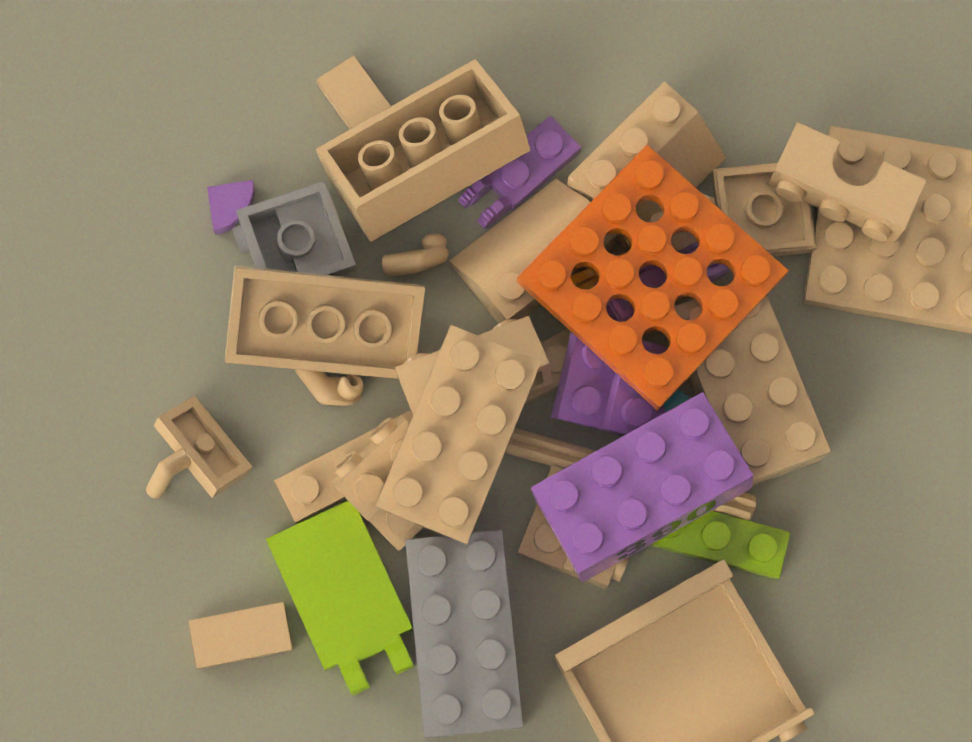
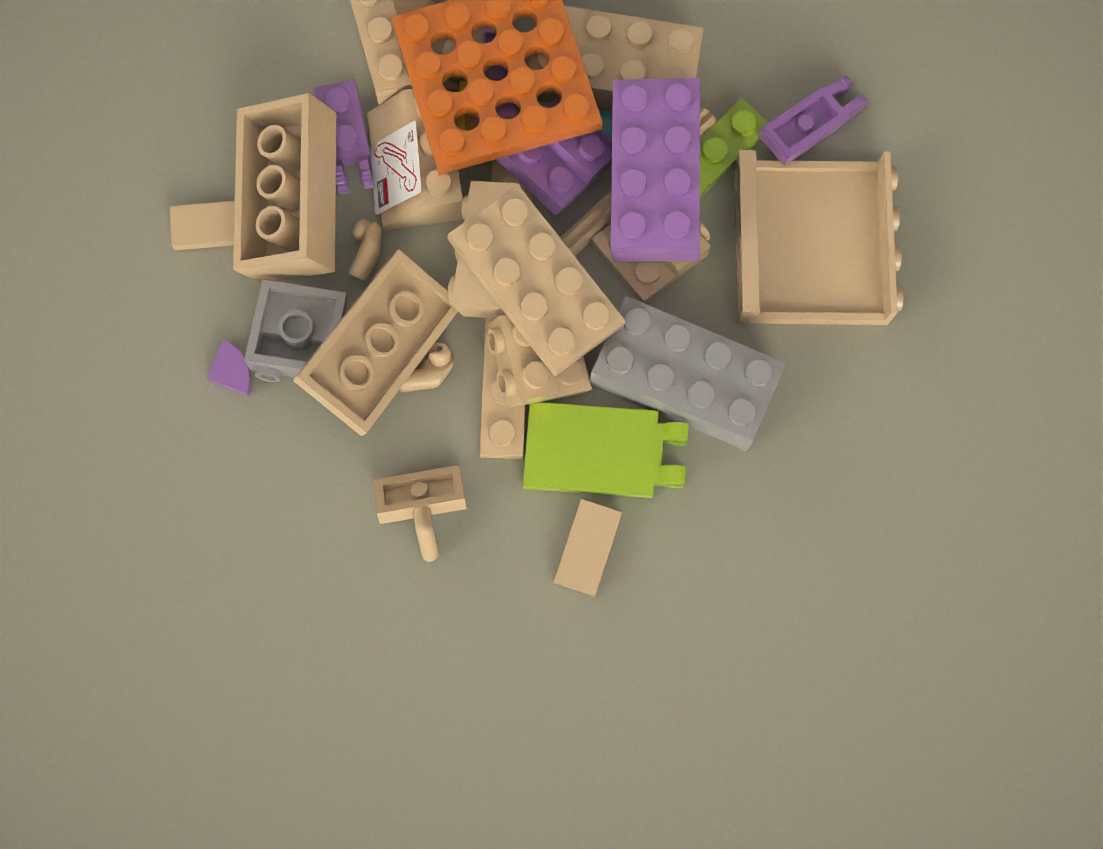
camera: 60 degrees left, 0 degrees up
(508, 238) = (396, 168): none -> white sticker
(806, 615) = (810, 121): none -> medium lavender hinge

